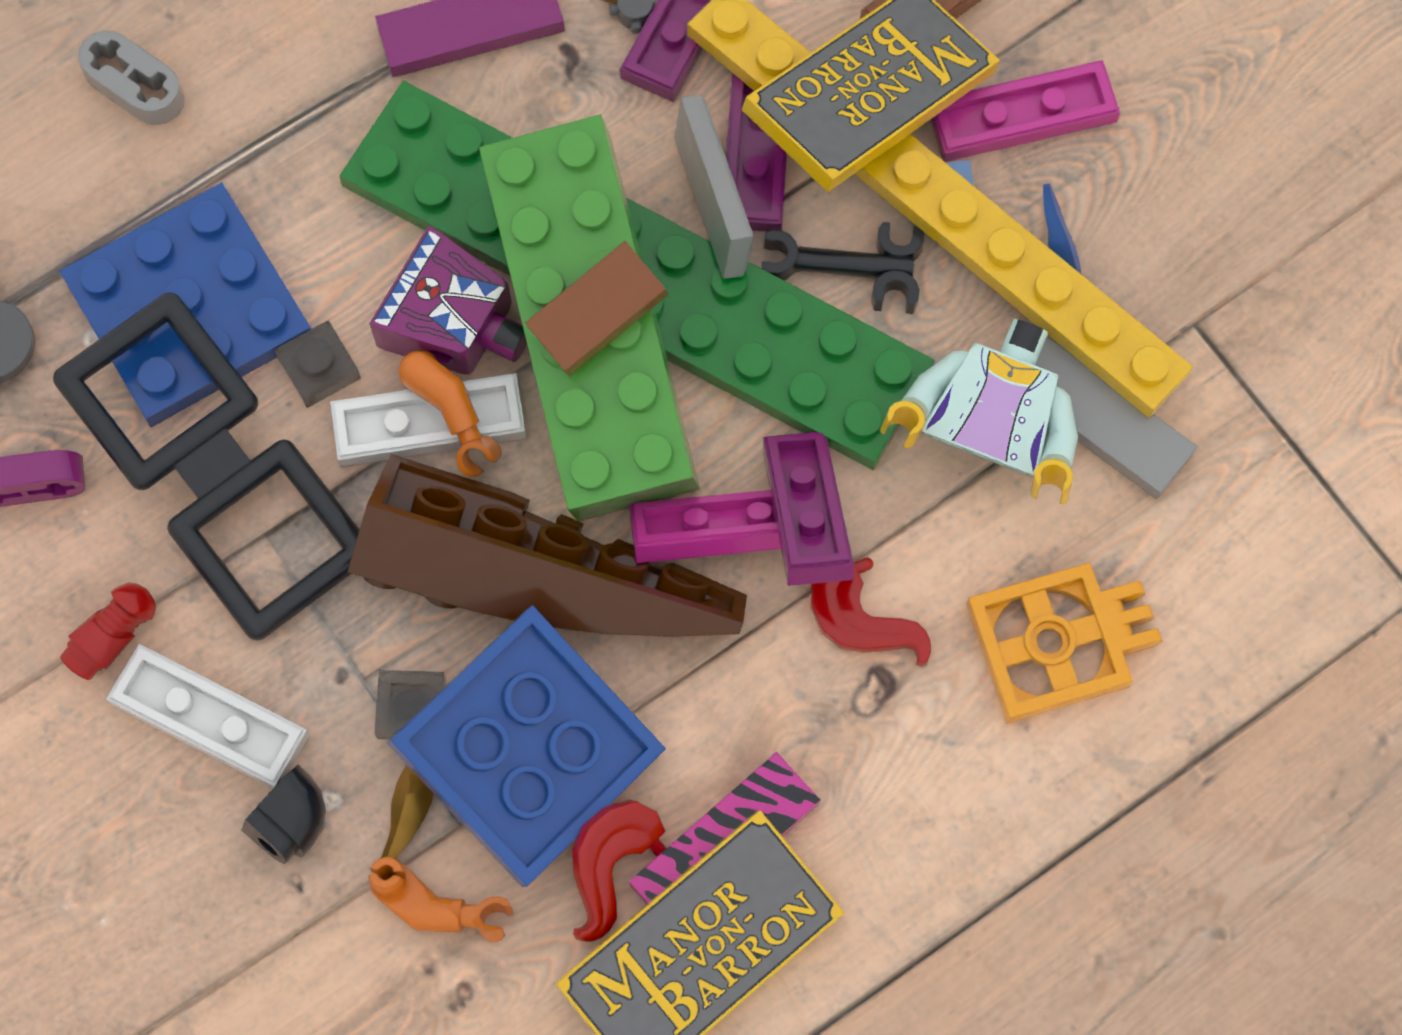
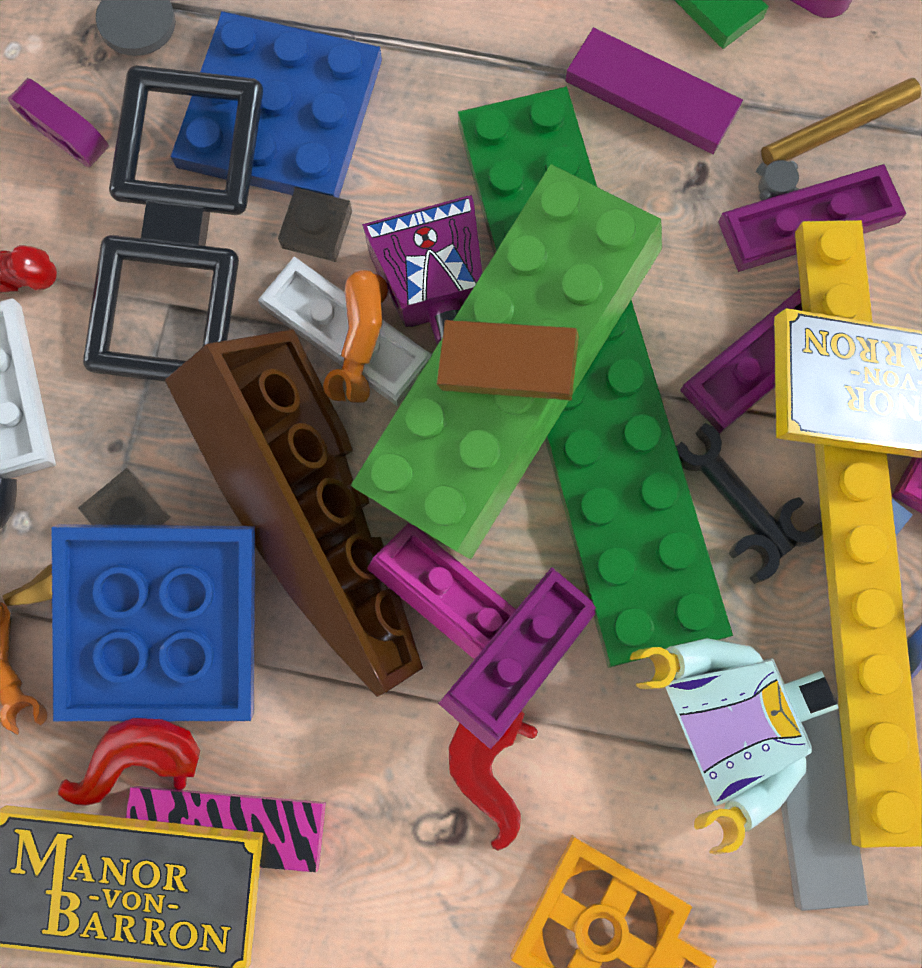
camera: 50 degrees right, 5 degrees up
(713, 187) = (699, 355): light grey tile -> none

